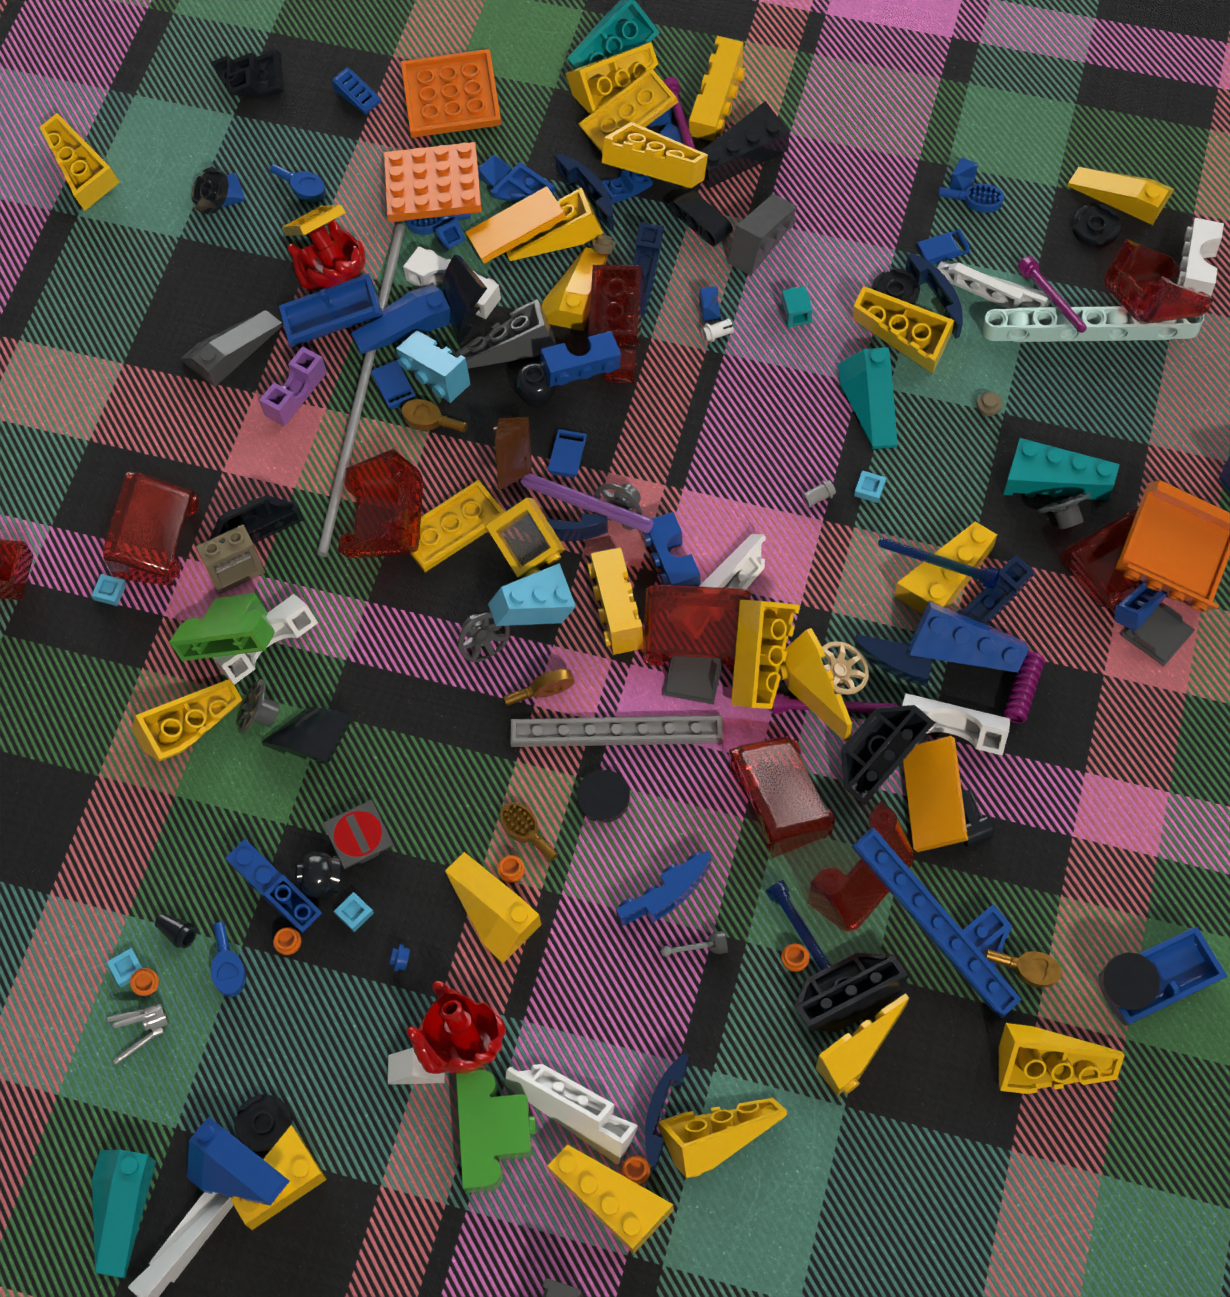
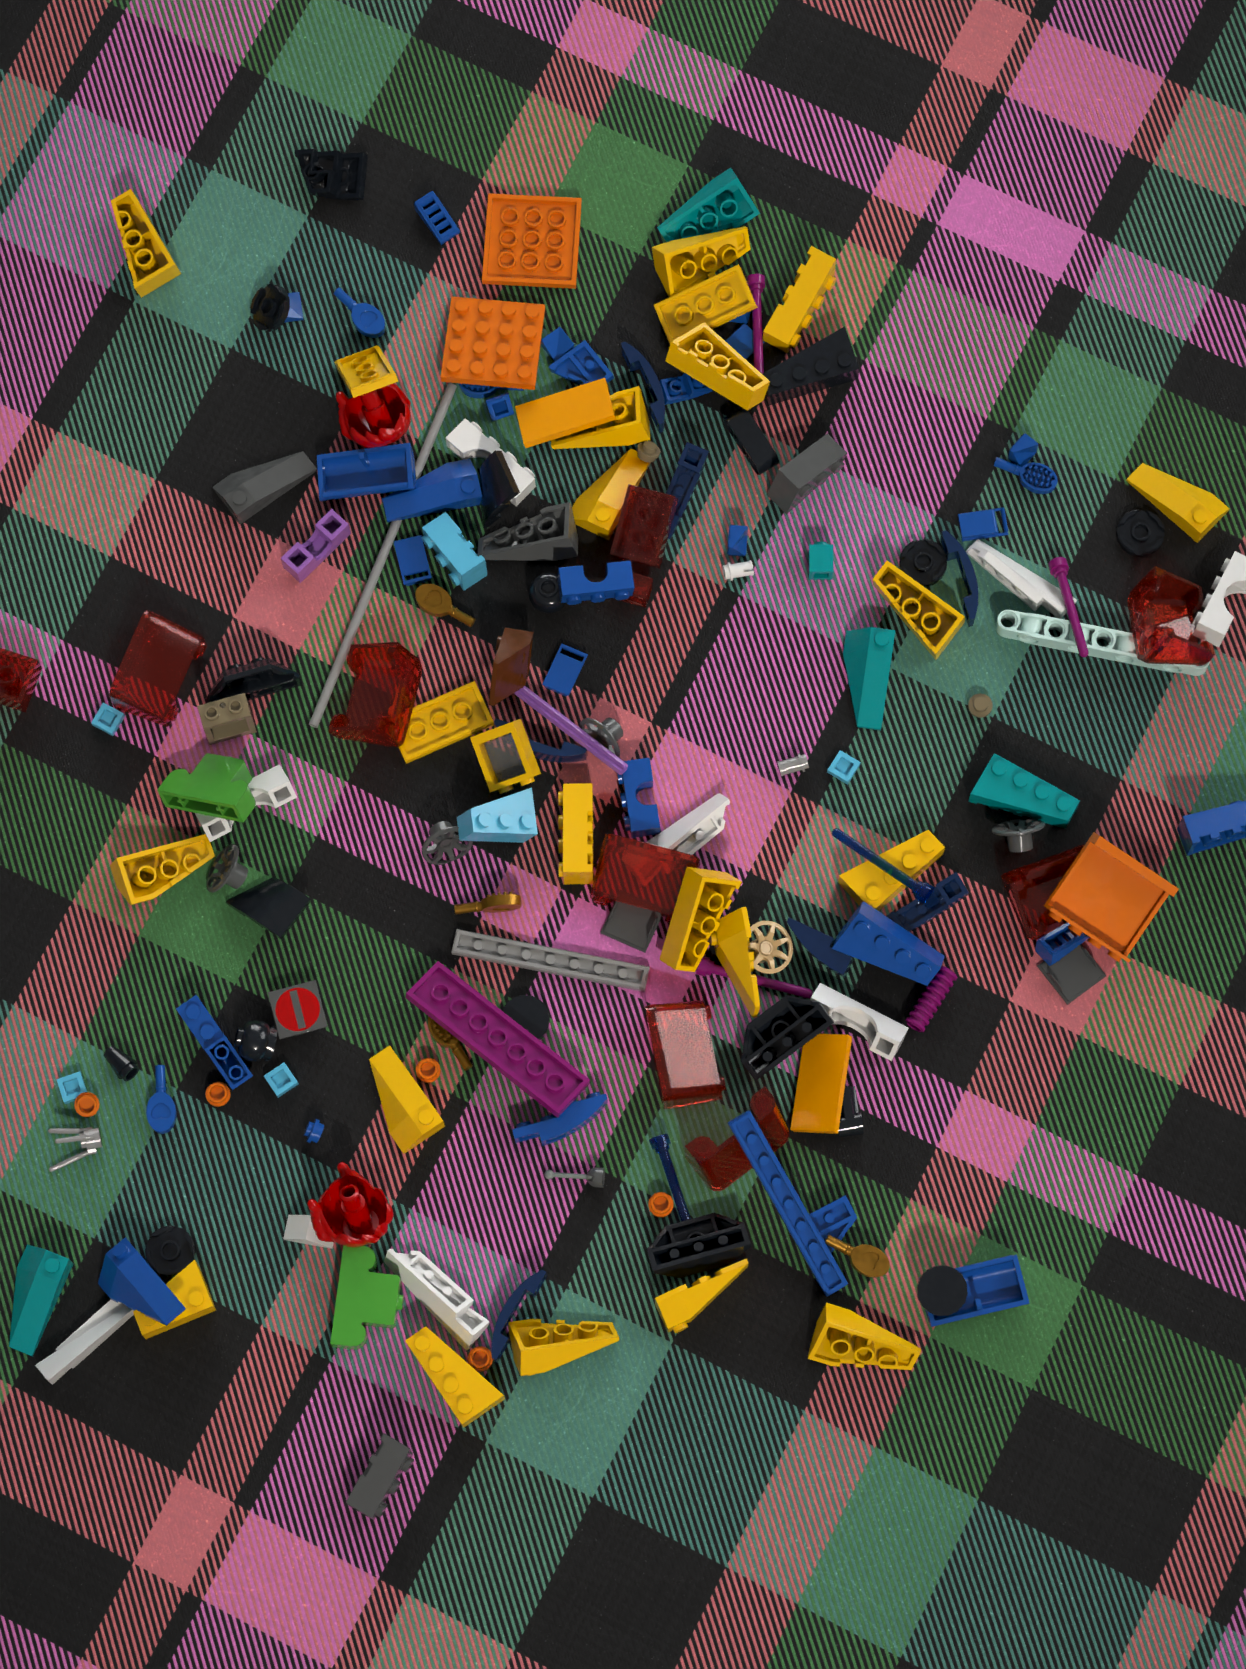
camera: 10 degrees right, 10 degrees up
(580, 818) = (497, 1039): none -> magenta plate

